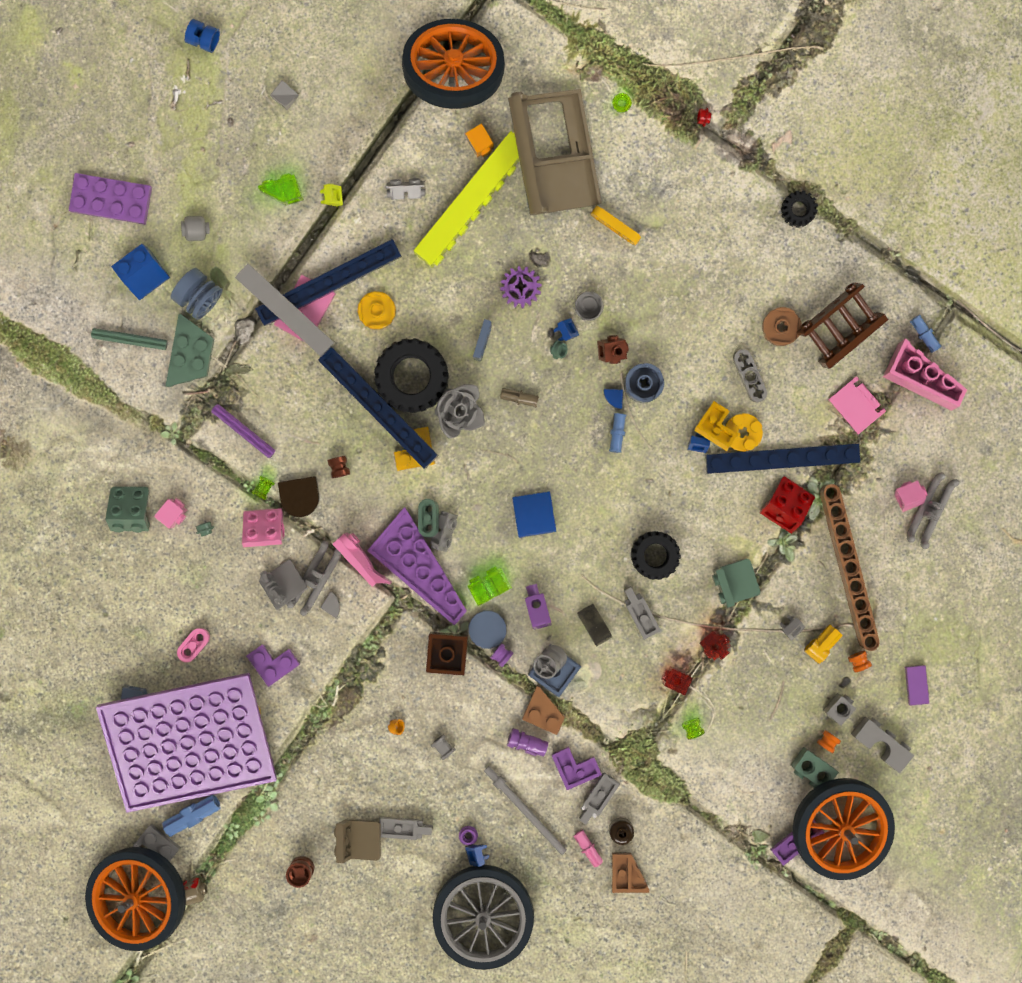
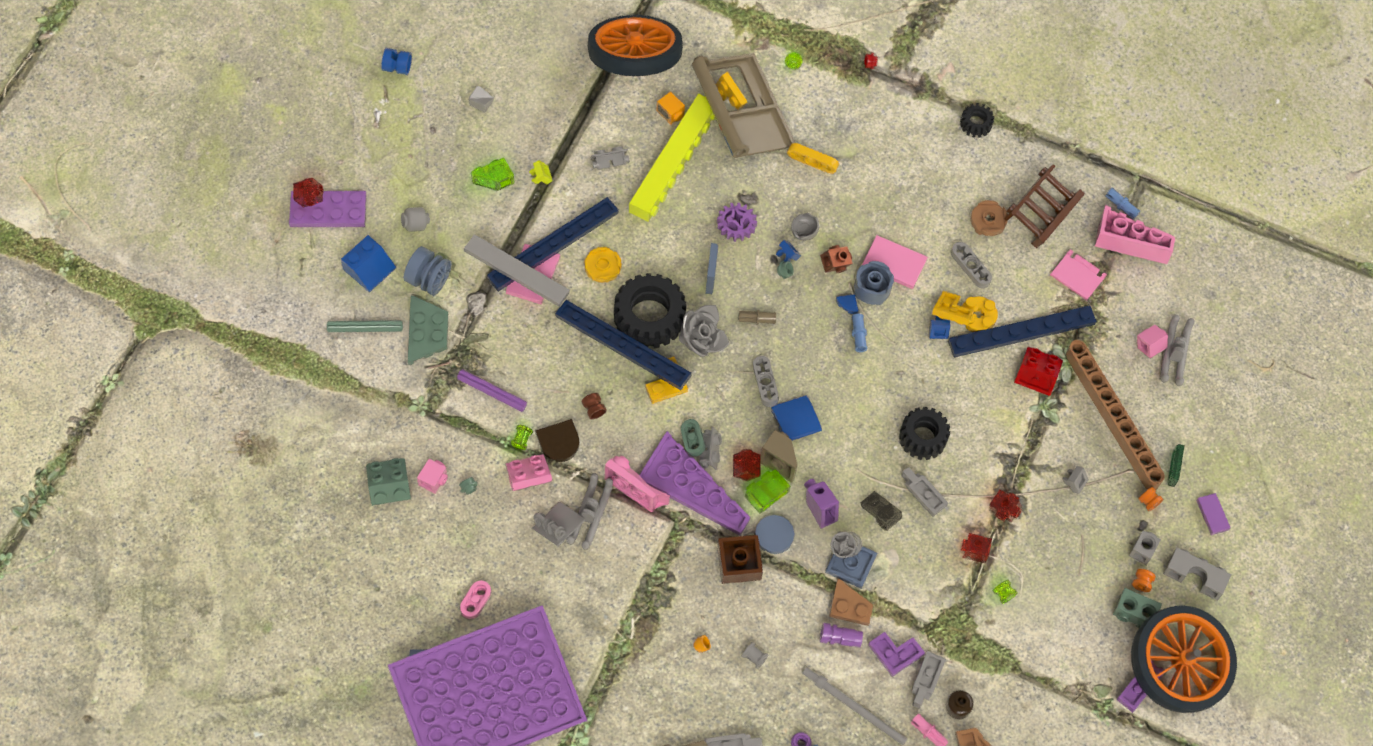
camera: 20 degrees left, 25 degrees down
(87, 184) = (308, 192): none -> clear red brick
(269, 668) = (561, 611): medium lavender plate -> none
(331, 605) = (611, 538): light grey tile -> none
(474, 557) = (746, 465): none -> clear red brick
(501, 655) = (794, 554): medium lavender wheel -> none
(507, 484) = (764, 388): none -> light grey beam
(507, 555) = (780, 455): none -> dark tan slope
(540, 130) = (729, 90): none -> yellow plate
(673, 358) = (902, 262): none -> bright pink tile
(736, 582) = (1009, 447): sand green bracket -> none
(820, 647) = (1109, 491): yellow piece -> none
(894, 631) = (1175, 465): none -> clear green tile

